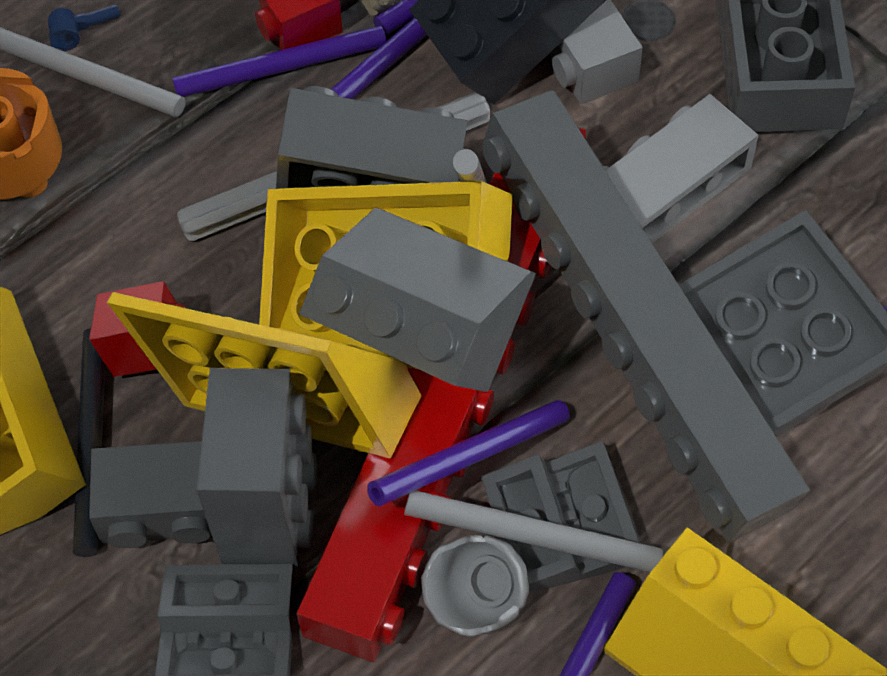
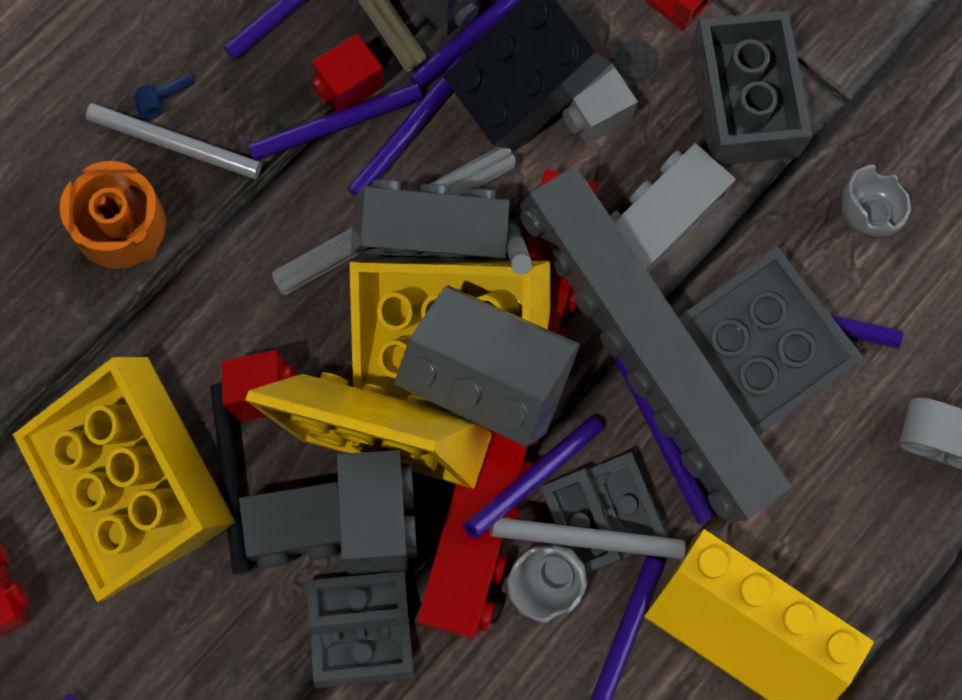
camera: 15 degrees left, 15 degrees up
(671, 481) = (687, 483): none -> dark purple bar

